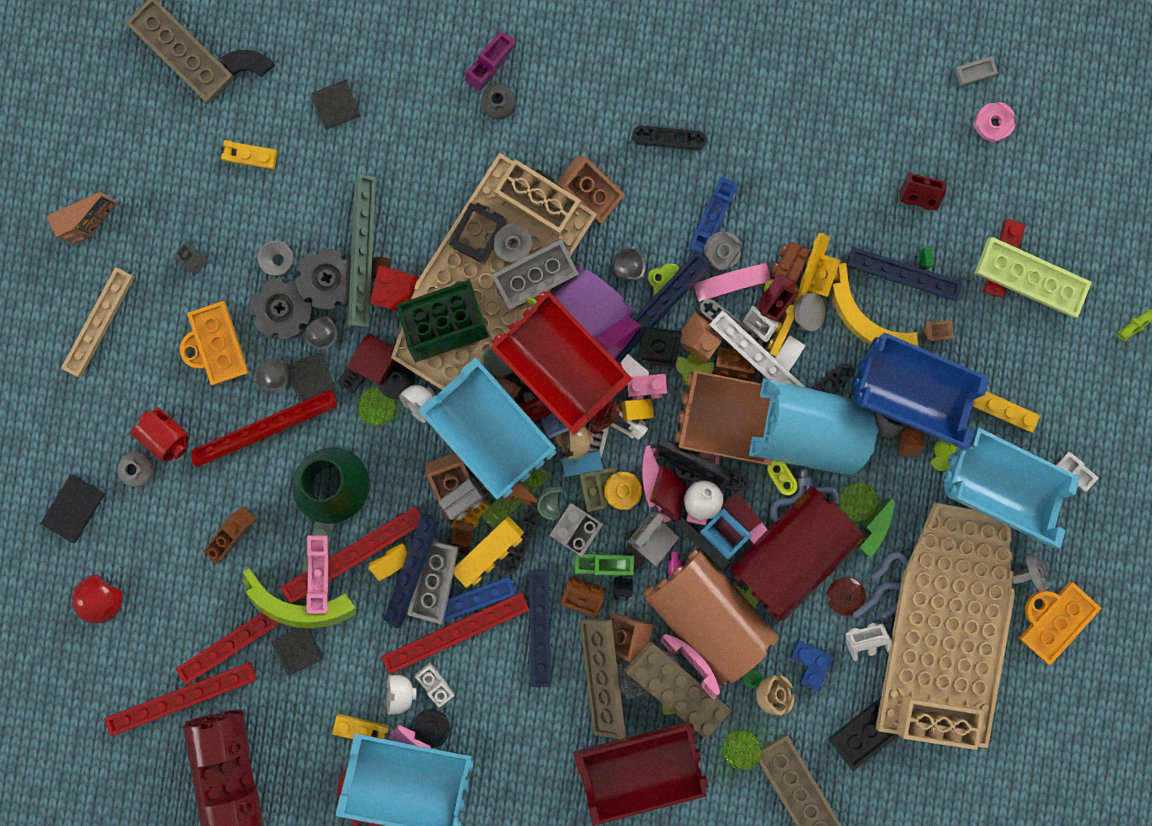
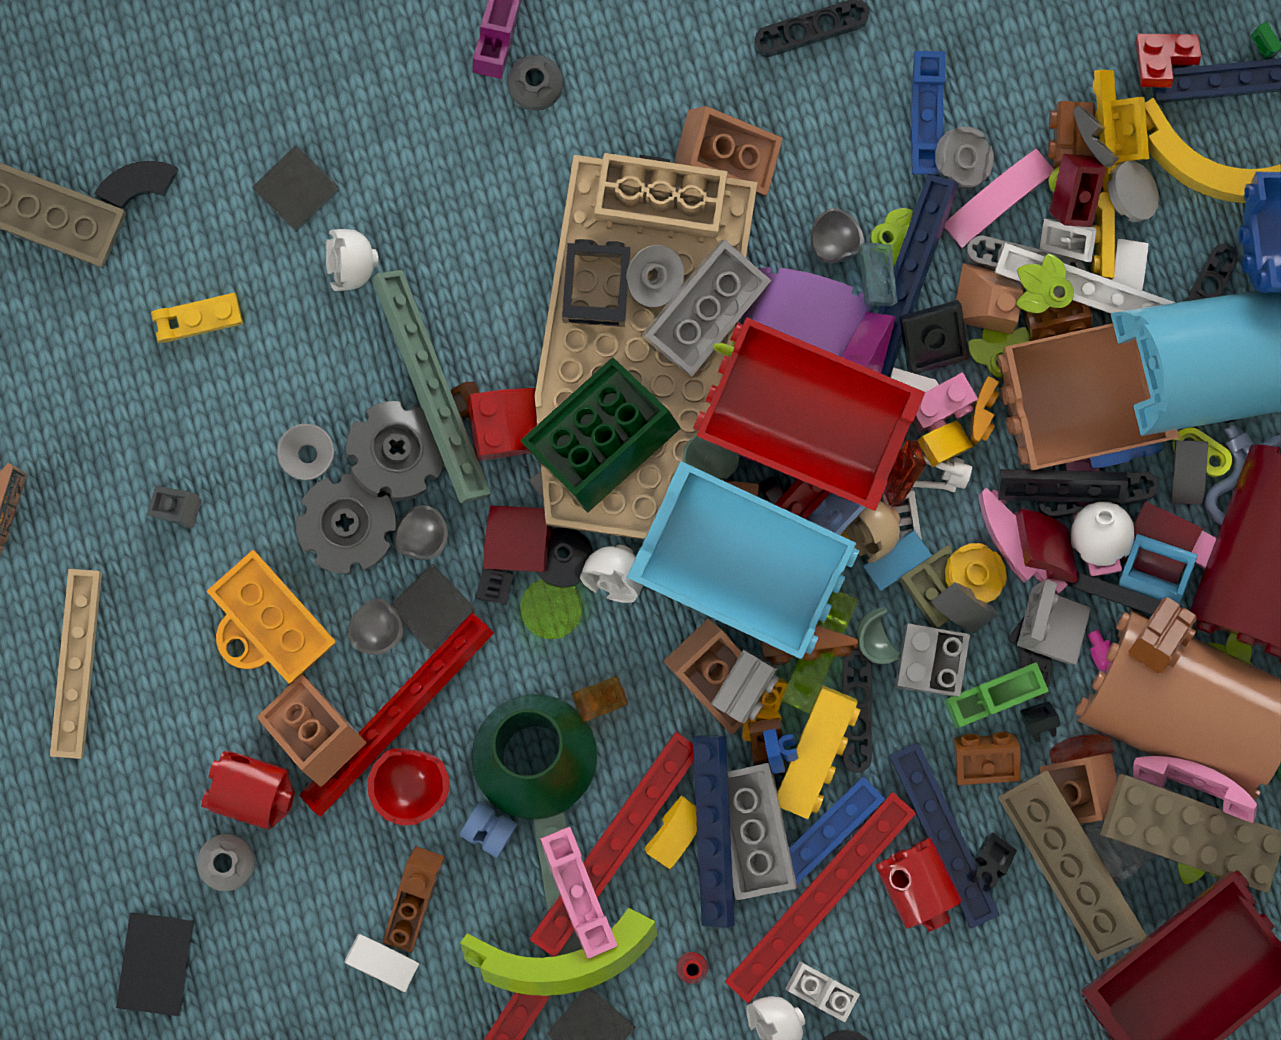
camera: 30 degrees left, 5 degrees down
(196, 563) = (381, 962): none -> white slope
(211, 417) = (311, 730): none -> nougat slope
(250, 471) = (407, 786): none -> red cylinder
(287, 515) = (488, 829): none -> medium blue wheel
(348, 158) = (350, 259): none -> white cylinder
(371, 639) = (685, 960): none -> red cone
(380, 469) = (600, 699): none -> clear orange bracket
(464, 541) = (776, 750): none -> blue tile
(512, 652) = (919, 885): none -> red cylinder
(562, 654) = (995, 859): none -> black plate
(606, 507) = (964, 608): none -> dark grey slope
(637, 613) = (1081, 747): none -> clear red tile
(642, 296) = (877, 274): none -> clear light blue plate
(664, 405) = (980, 420): none -> light orange slope
(709, 575) = (1162, 636): none -> dark orange brick
(731, 343) = (1040, 283): none -> lime plate
(731, 461) = (1125, 455): none -> blue tile
(769, 485) = (1189, 472): none -> dark grey slope
(801, 265) = (1090, 129): none -> dark grey slope
(861, 238) = (1160, 51): none -> plate

